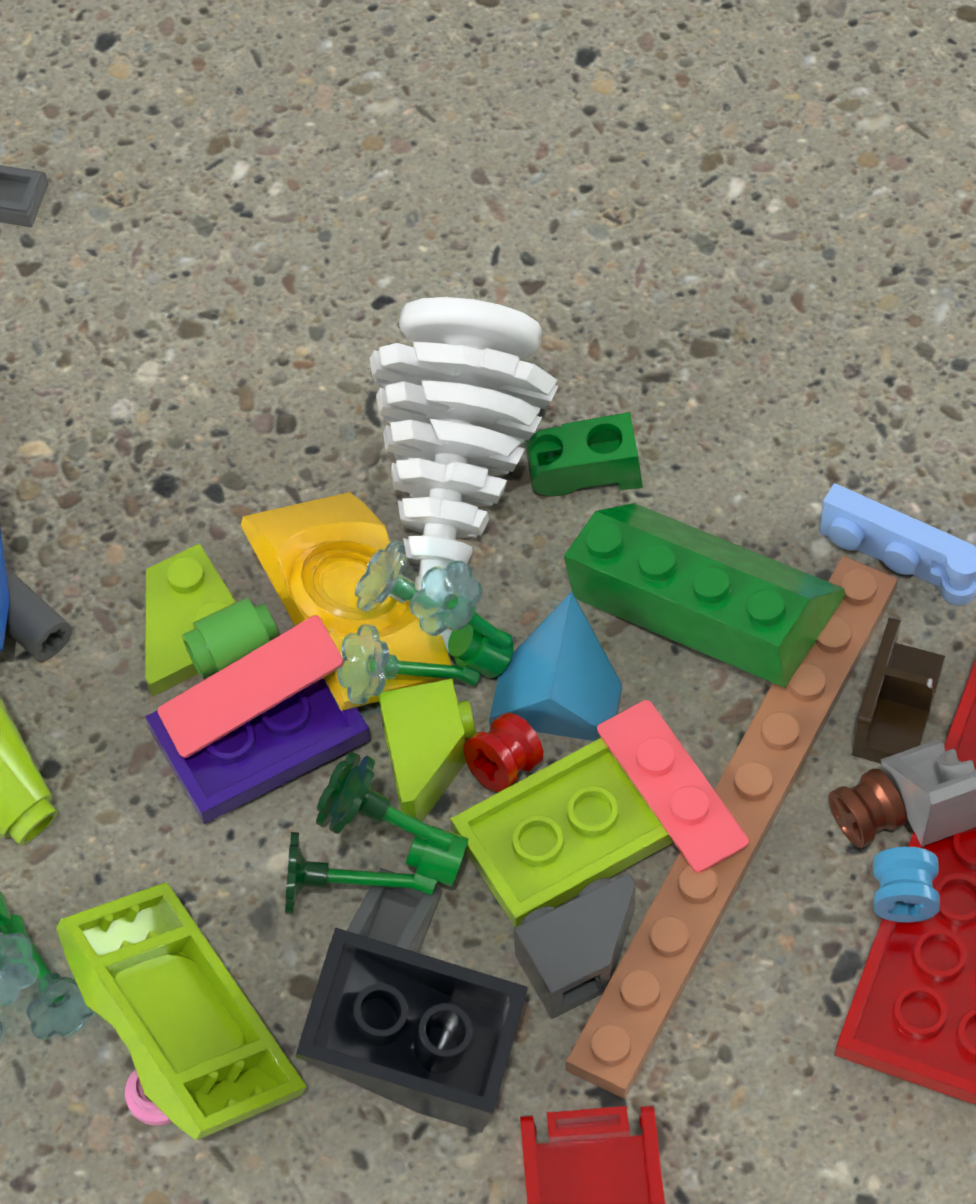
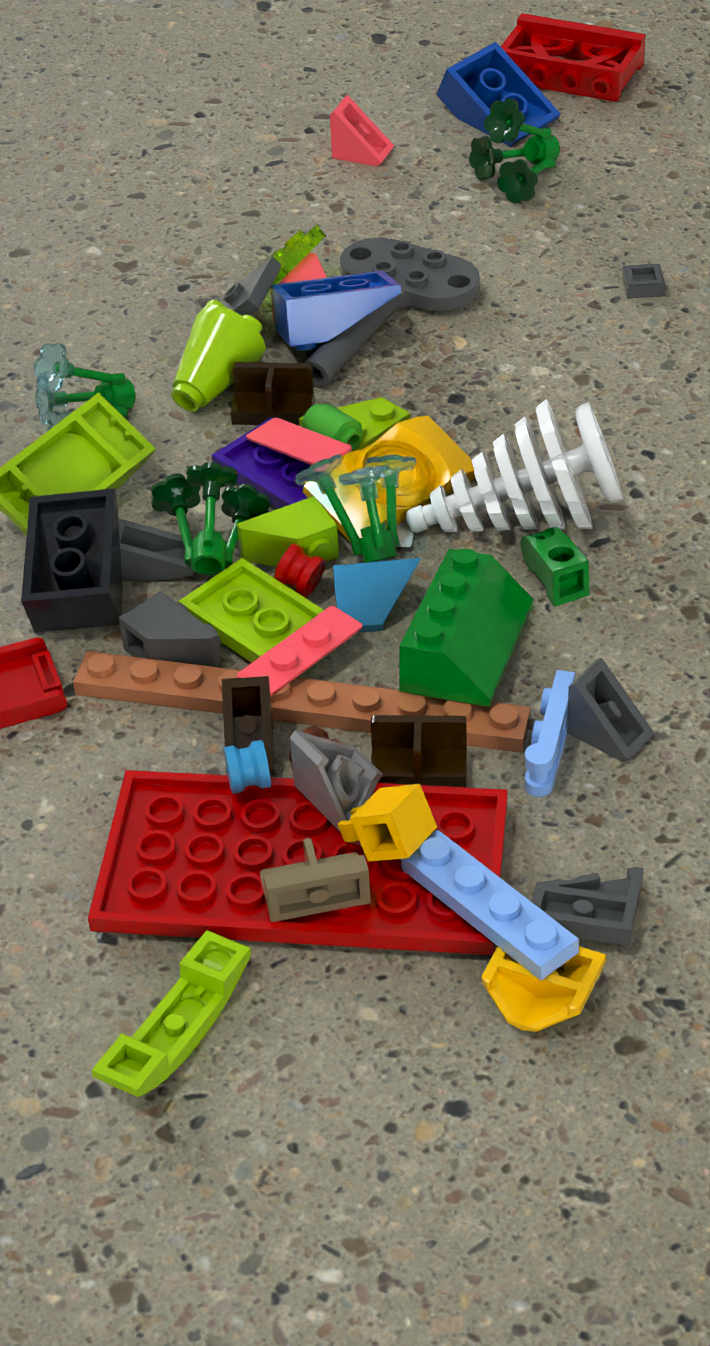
camera: 75 degrees right, 15 degrees down
(85, 709) = (271, 391): none -> dark brown panel
(809, 876) = (248, 713): none -> dark brown slope
(890, 475) = (605, 714): none -> dark grey slope

